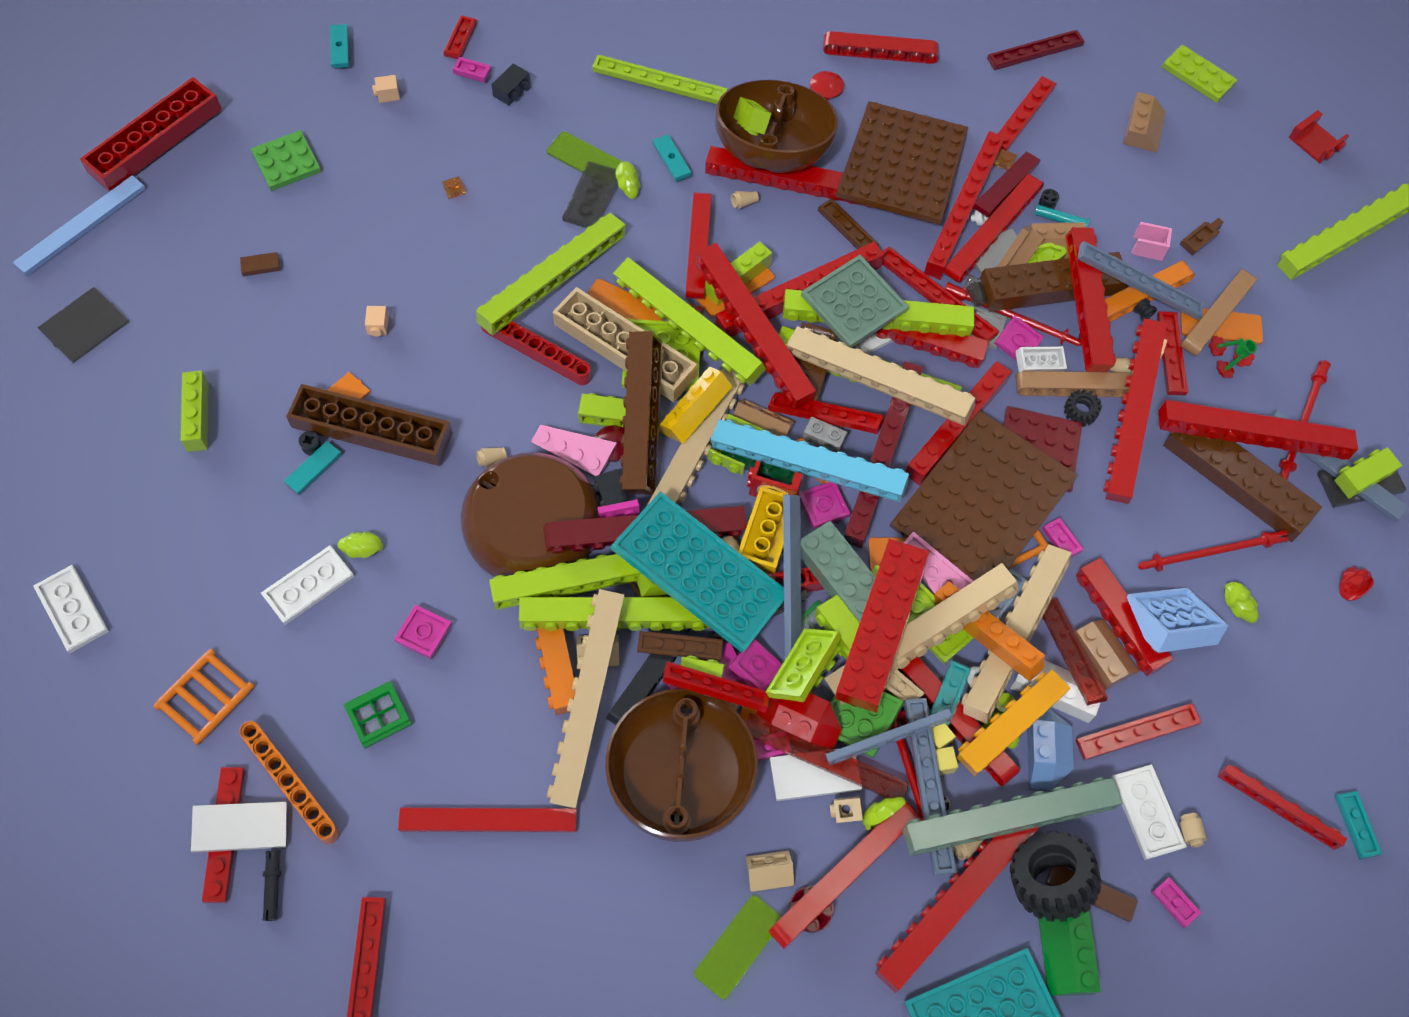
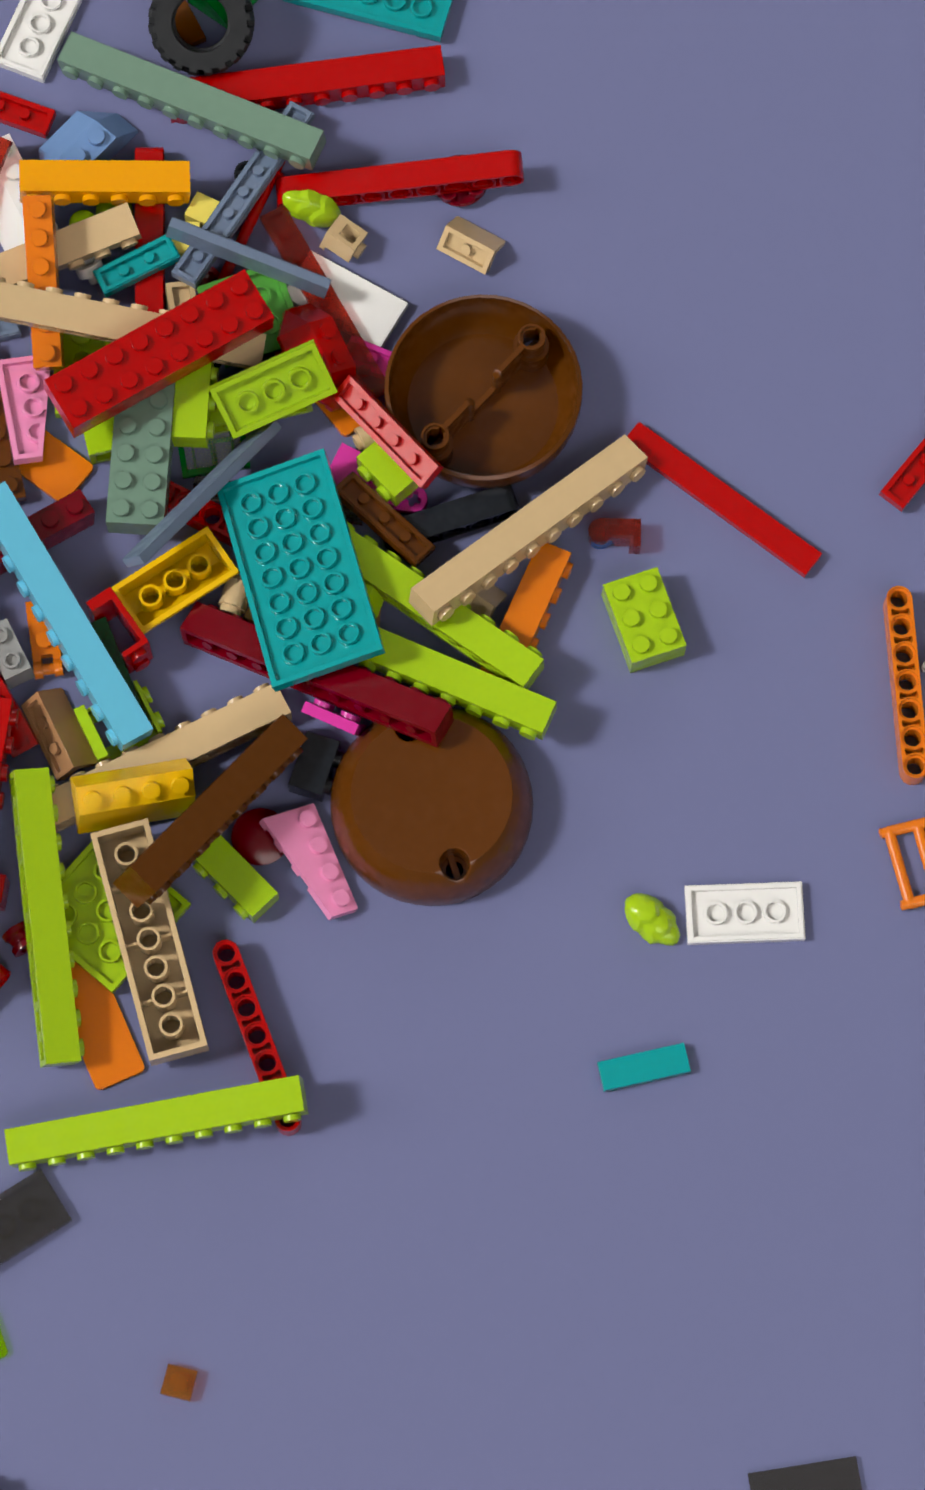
camera: 140 degrees left, 10 degrees up
(194, 411) = (741, 1250): lime brick -> none
(260, 264) = (522, 1441): reddish brown tile -> none
(305, 442) = (626, 1107): black wheel -> none
(350, 386) = (533, 1151): orange piece -> none
(370, 424) = (539, 1066): reddish brown brick -> none
(377, 320) = (429, 1224): light nougat brick -> none
(377, 714) = (763, 697): green piece -> none
(423, 632) = (651, 754): dark pink plate -> none
(482, 704) = (643, 619): none -> lime brick
(488, 456) = (421, 923): tan cone -> none
(537, 748) = (615, 532): none -> clear red leg
(737, 948) = (558, 202): clear neon green piece -> none
(755, 666) = (317, 434): dark pink plate -> none
(823, 504) = (84, 570): dark pink plate -> none

